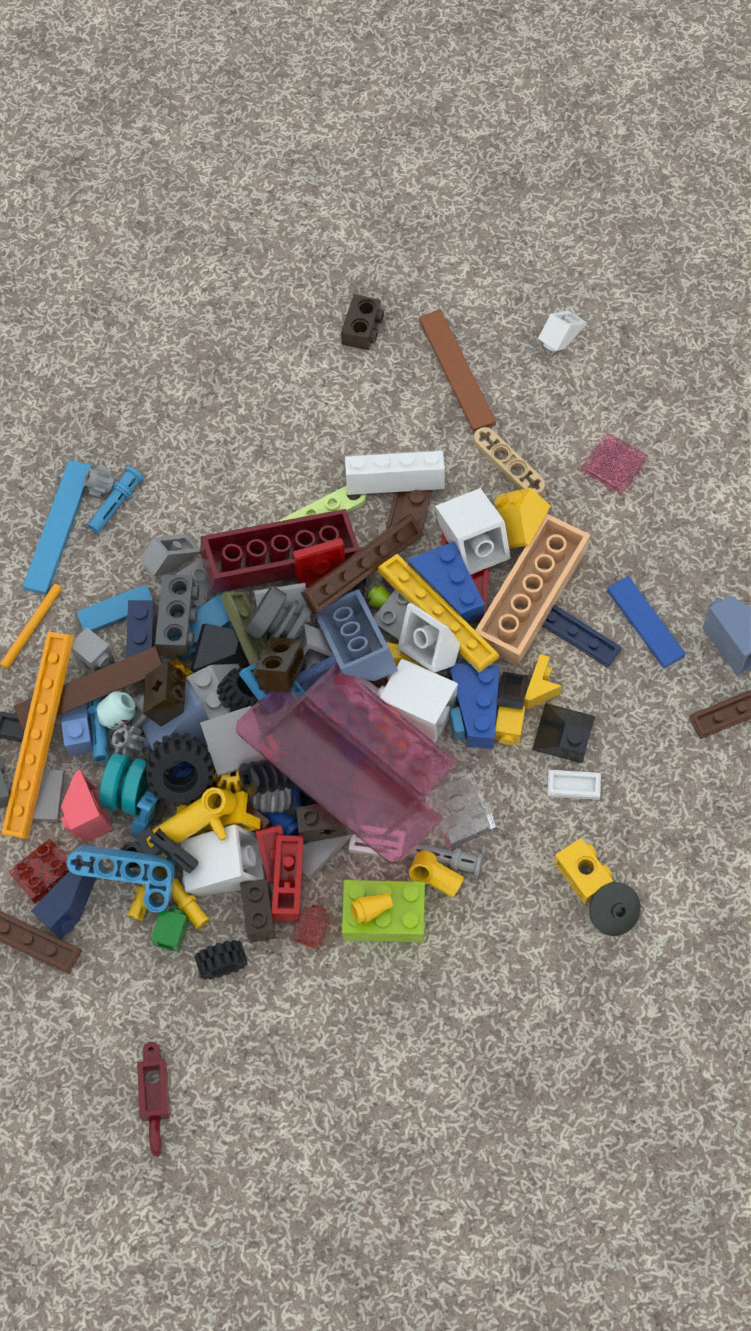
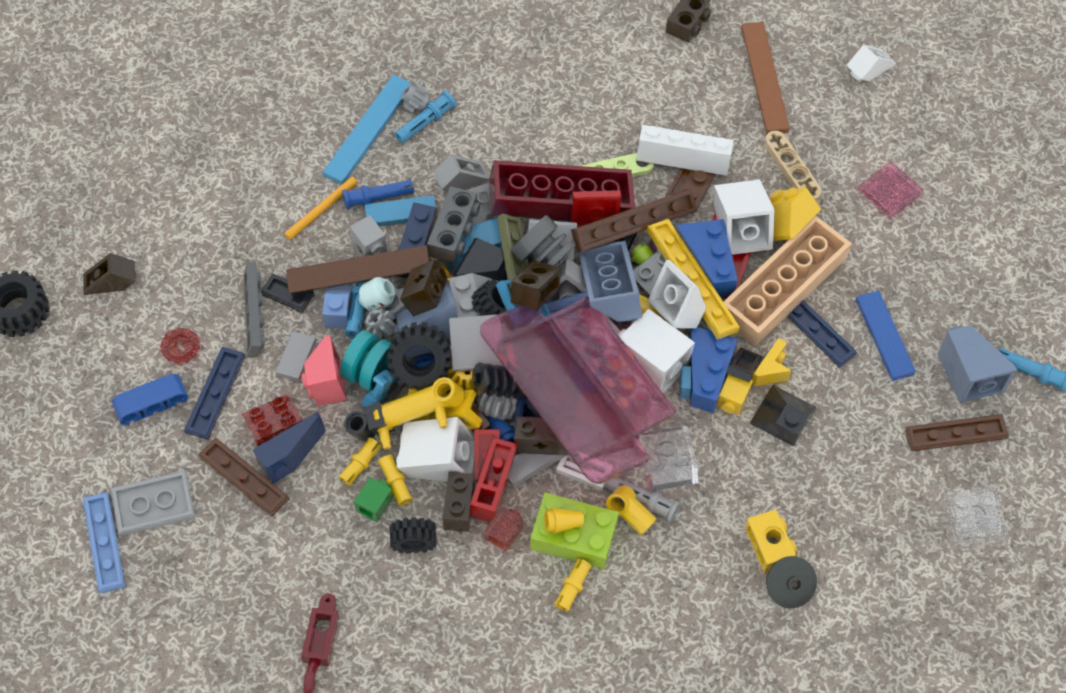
camera: 10 degrees right, 5 degrees down
(37, 735) = (300, 299): light orange tile -> none
(75, 601) = (366, 195): none -> blue pin
(122, 872) = (343, 434): dark azure beam -> none
(173, 851) = (395, 427): black axle -> none
(396, 968) = (572, 585): none -> yellow pin
(574, 784) = (781, 463): white tile -> none

